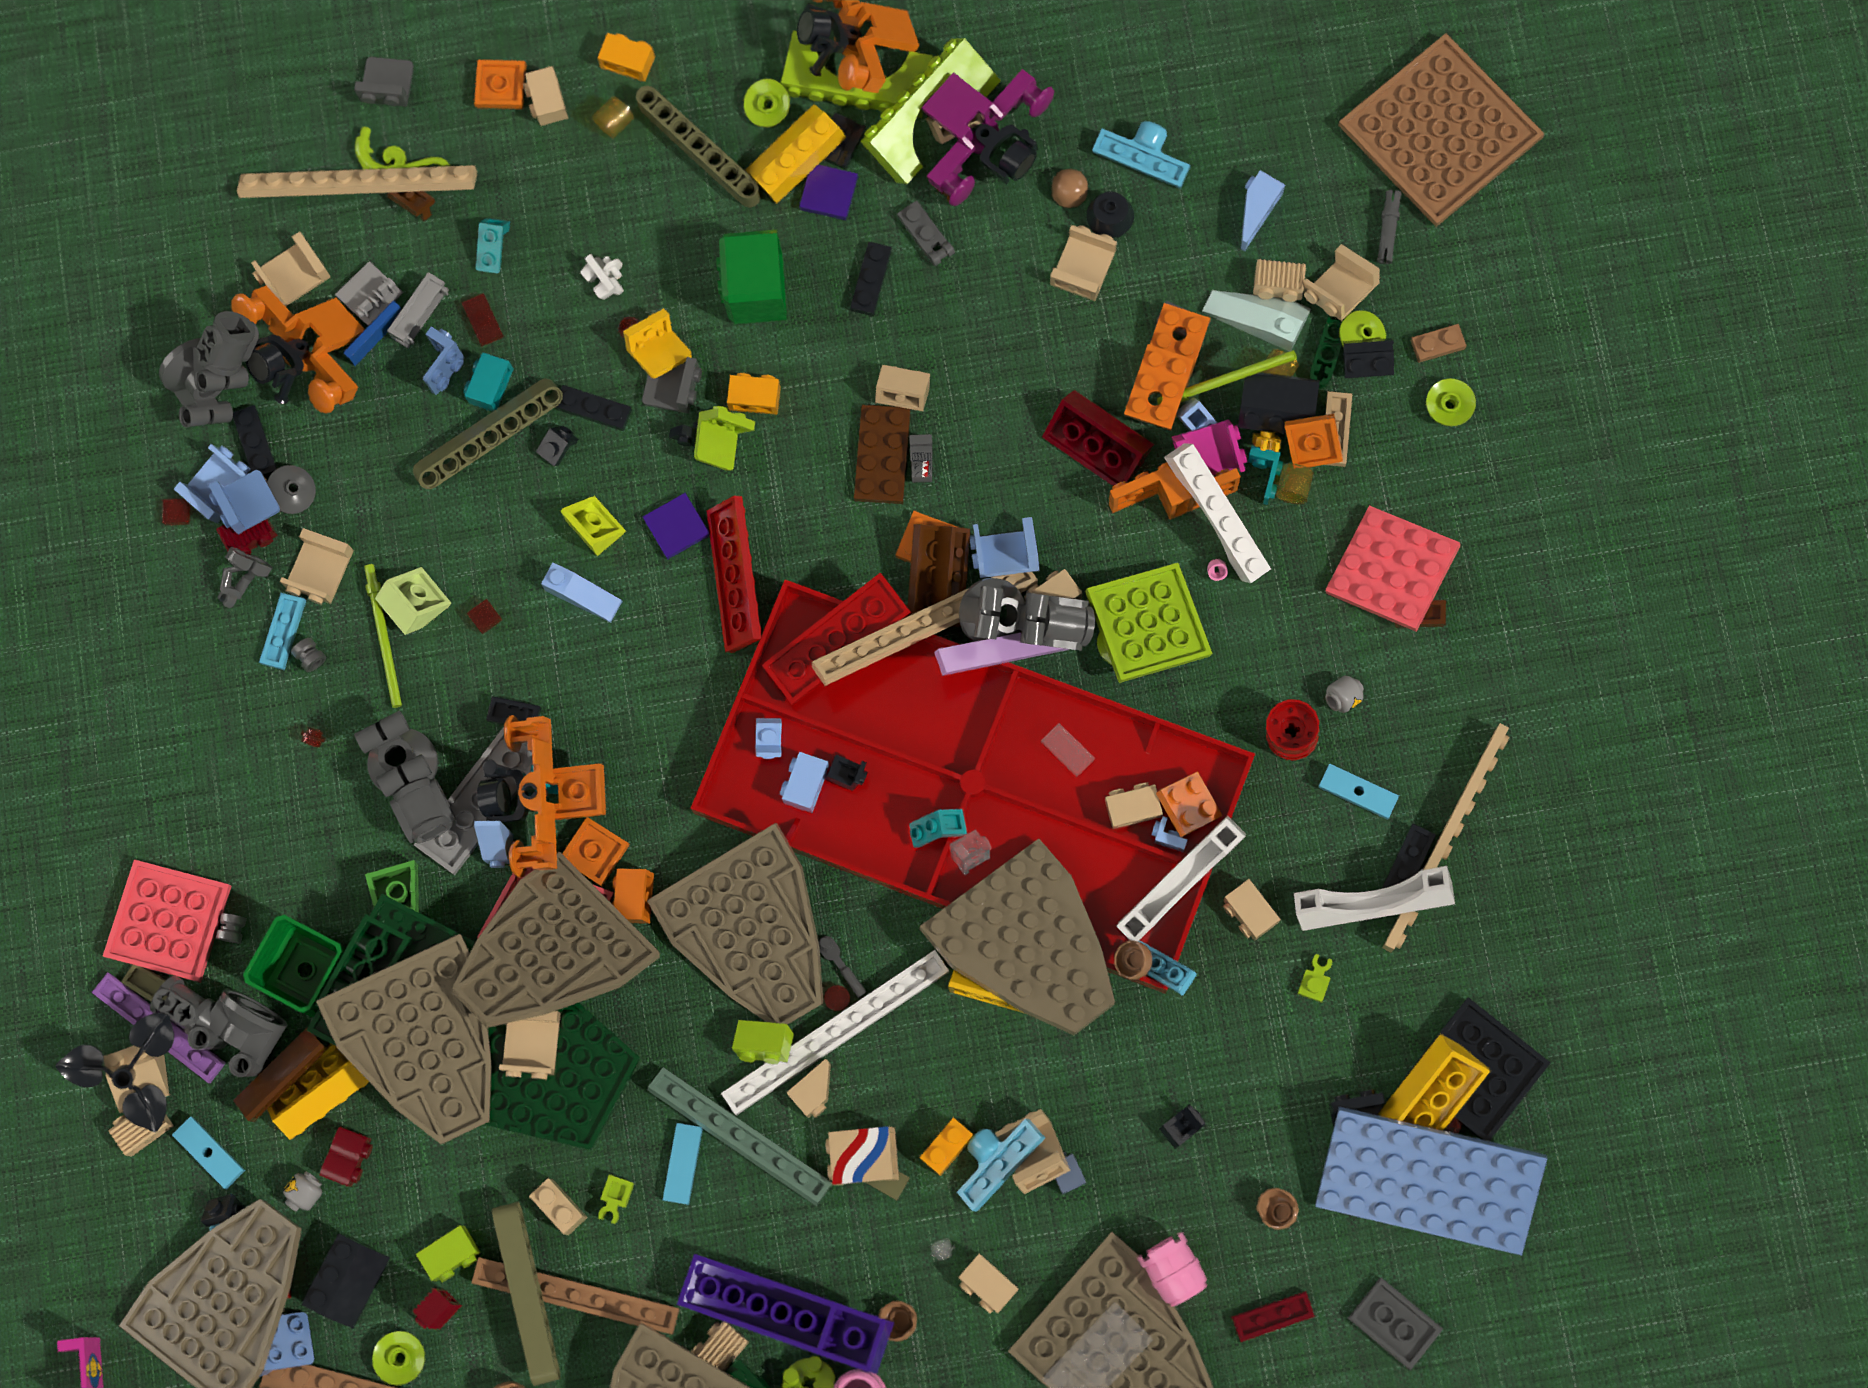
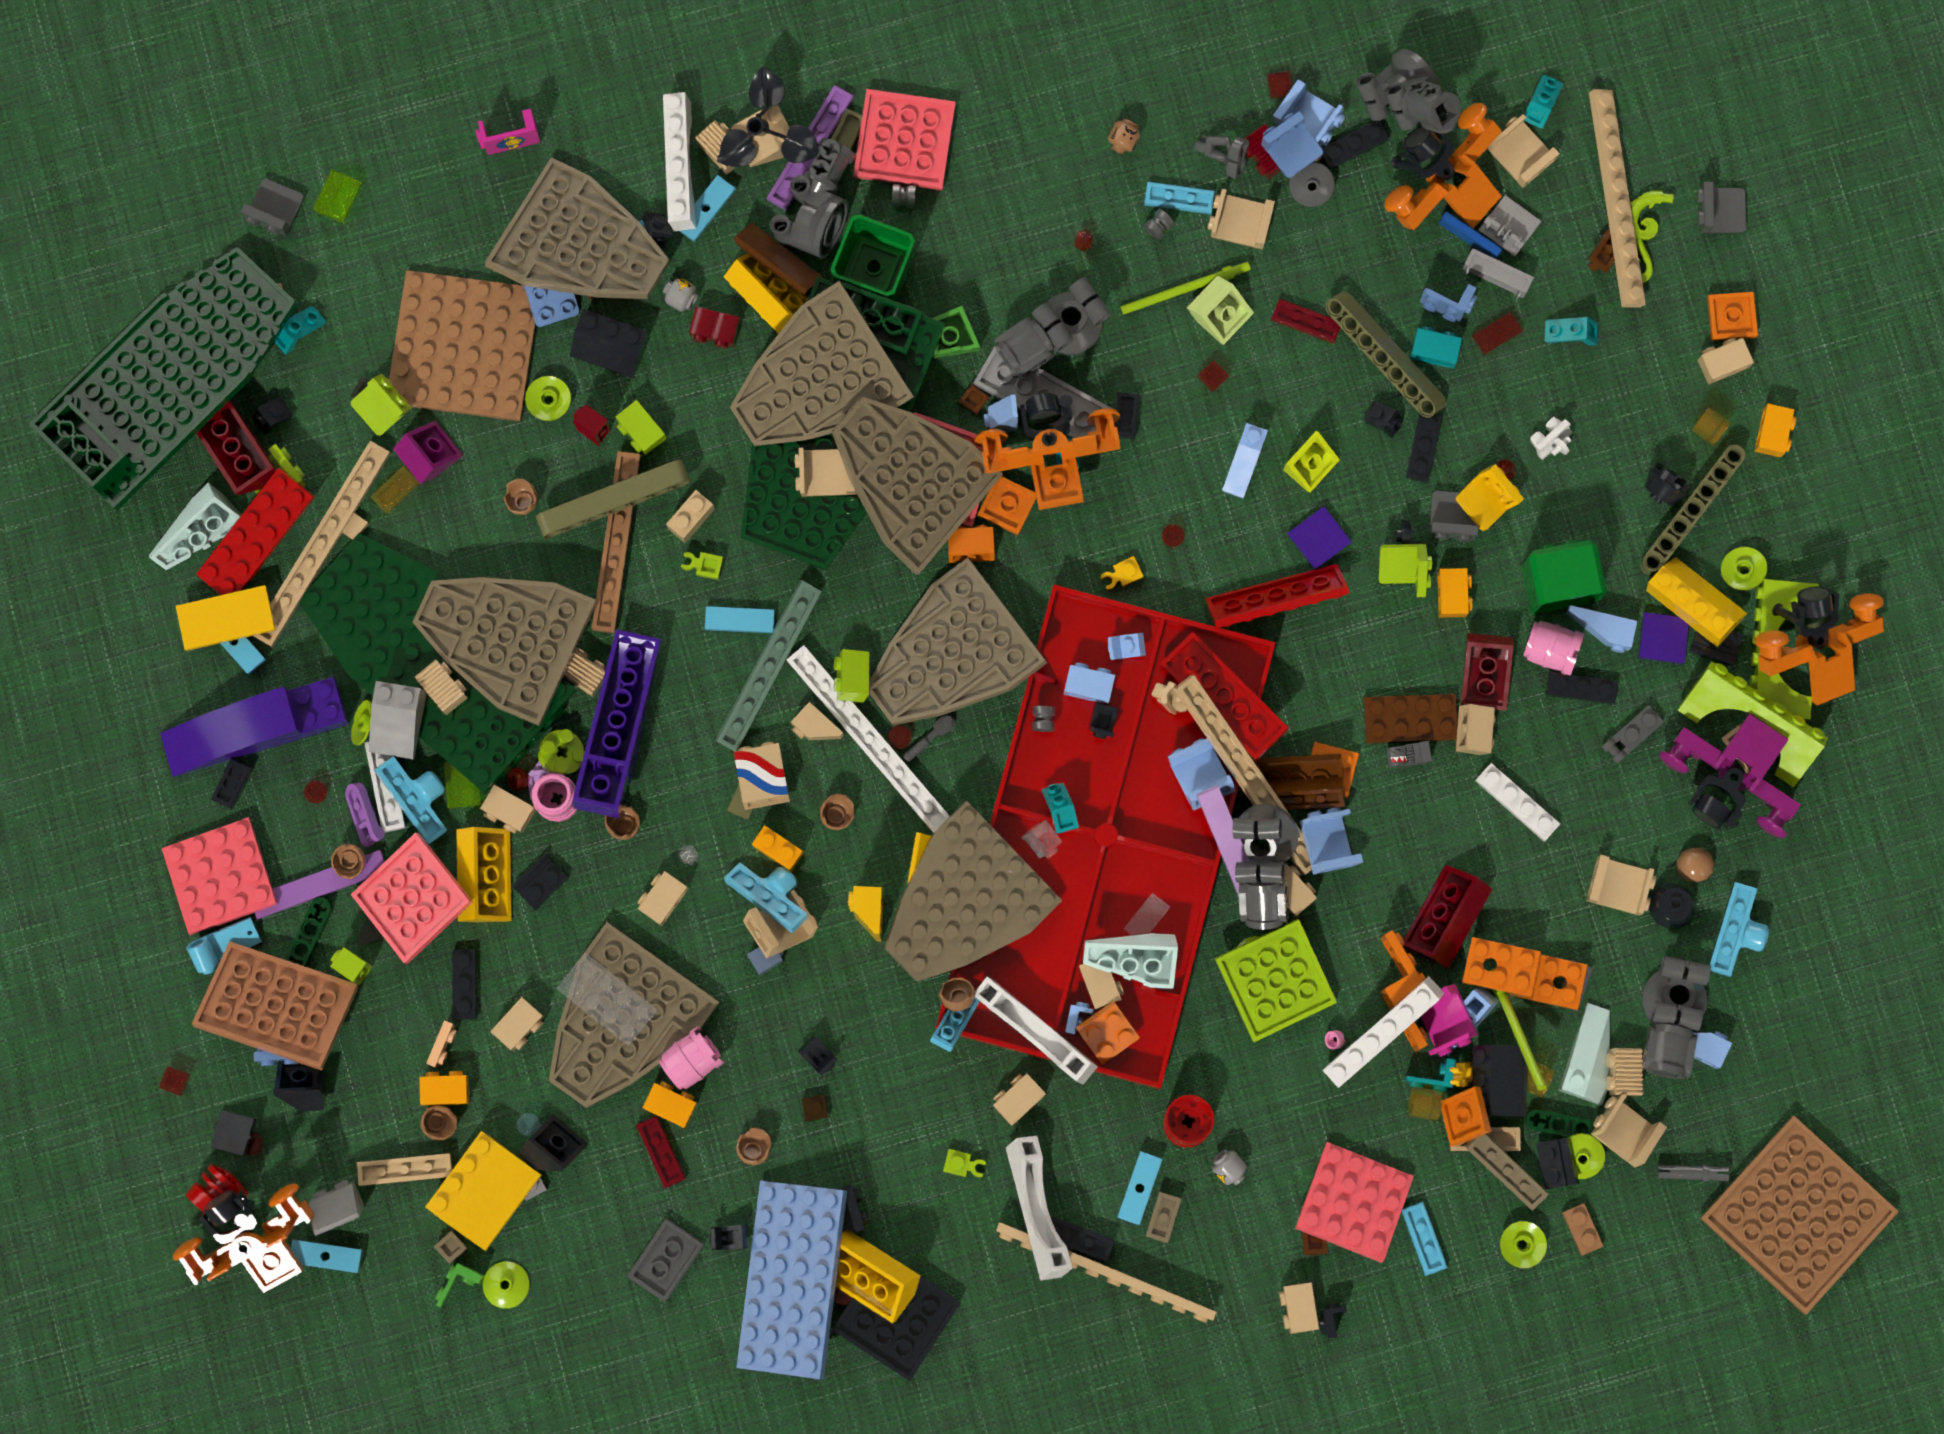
camera: 75 degrees right, 5 degrees up
(149, 1177) = (678, 176): none -> white arch
(204, 680) = (1124, 136): none -> medium nougat head
(241, 243) = (1543, 101): none -> teal bracket
(438, 513) = (1305, 321): none -> dark red tile
(472, 876) = (974, 400): none -> reddish brown tile
(652, 678) = (1172, 535): none -> clear red plate
(669, 168) = (1665, 485): none -> black cone
(687, 733) = (1125, 573): none -> yellow plate
(812, 245) = (1607, 628): none -> light blue slope
(825, 297) = (1553, 646): none -> bright pink piece
(831, 833) = (1043, 719): none -> flat silver wheel
(832, 695) = (1168, 697): none -> tan hips
(841, 369) = (1487, 670): none -> dark red slope
(913, 1076) = (837, 812): none -> medium nougat hair
(916, 675) = (1198, 770): none -> light blue panel
(983, 356) = (1517, 802): none -> white plate
(1030, 1047) = (868, 908): none -> yellow slope
(1112, 755) = (1136, 957): none -> light aqua wedge
(1222, 1299) = (670, 1105): none -> light orange brick
(1239, 1136) = (815, 1108): none -> dark brown plate
(1253, 226) = (1670, 1041): none -> dark grey piece
(1373, 408) = (1507, 1171): none -> dark tan plate
(1376, 1248) = (728, 1237): none -> black bracket
(1392, 770) = (1163, 1217): none -> dark tan plate
(1436, 503) = (1424, 1238): none -> medium azure tile
(1500, 638) = (1299, 1308): none -> tan brick
(1520, 610) = (1327, 1325): none -> black bracket

